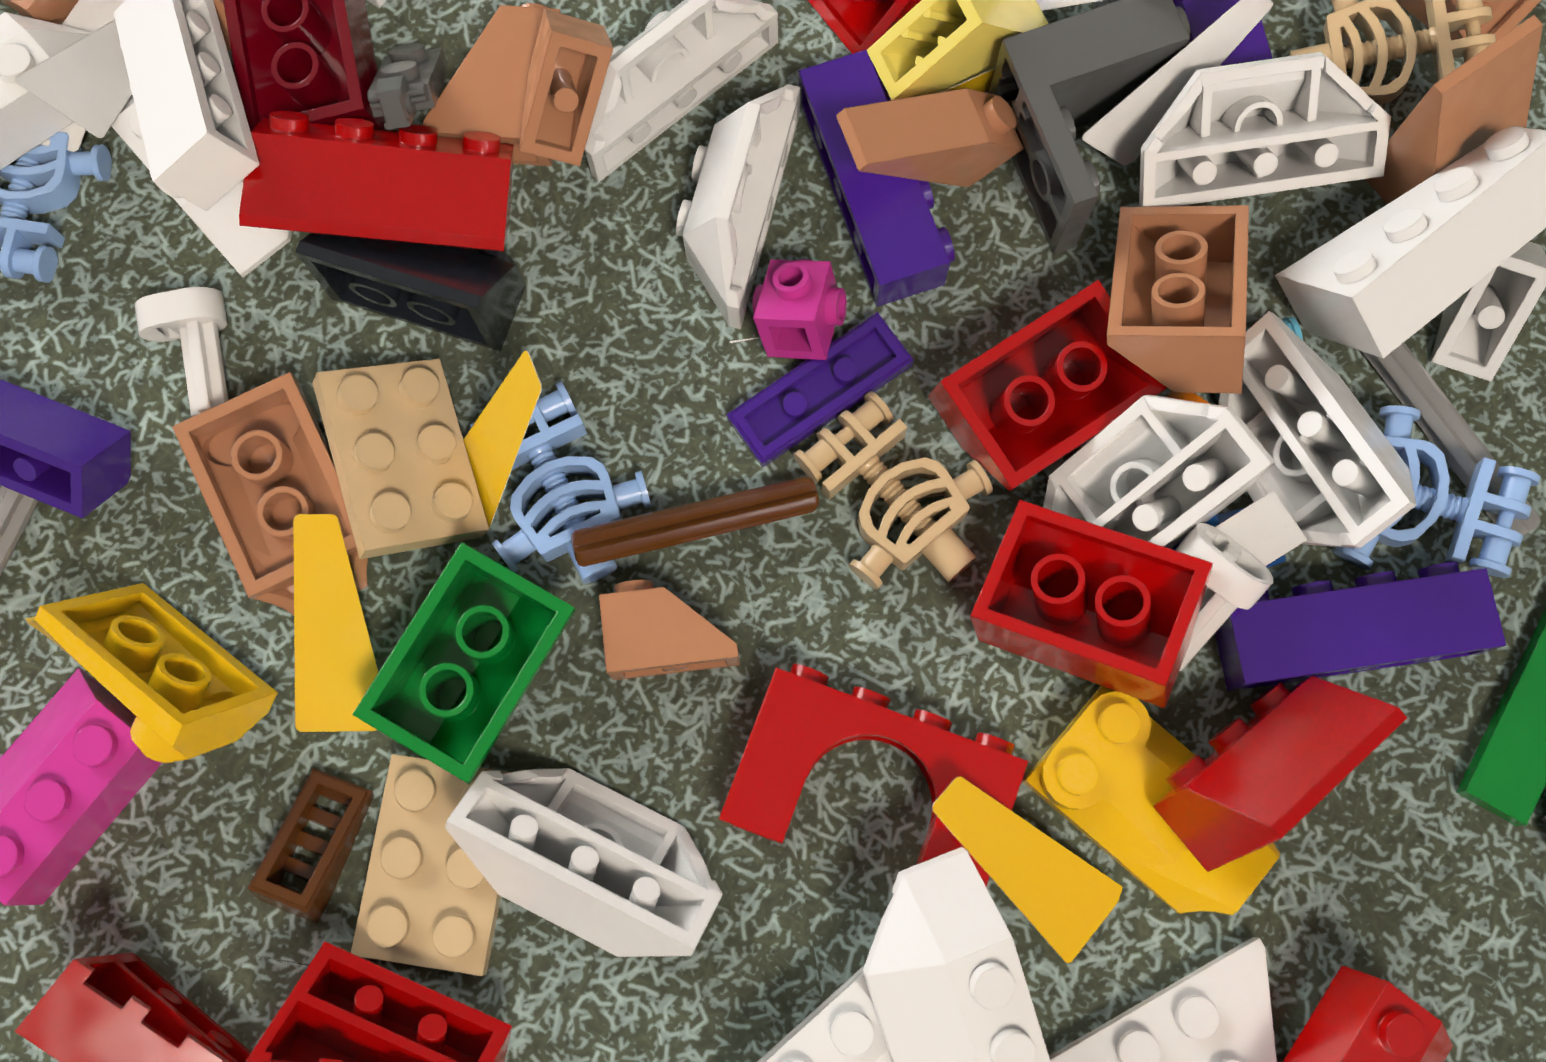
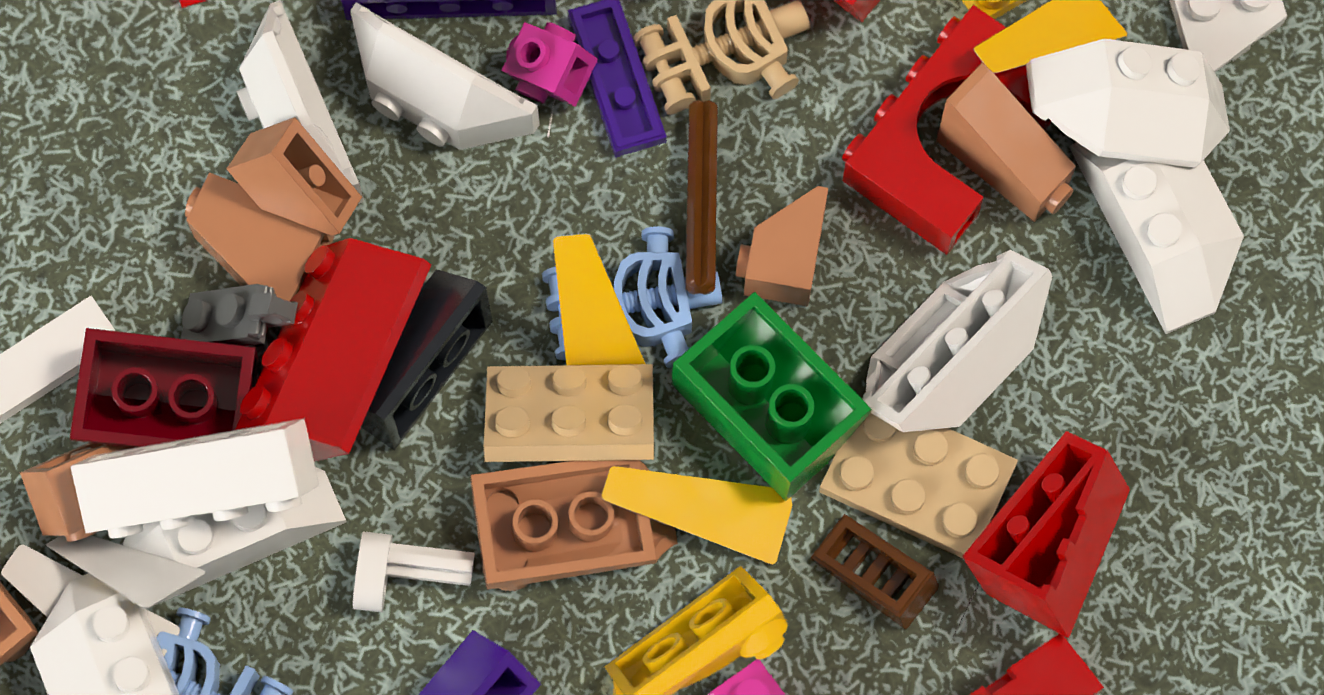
camera: 75 degrees left, 5 degrees down
(860, 855) = (1005, 145): none -> nougat slope

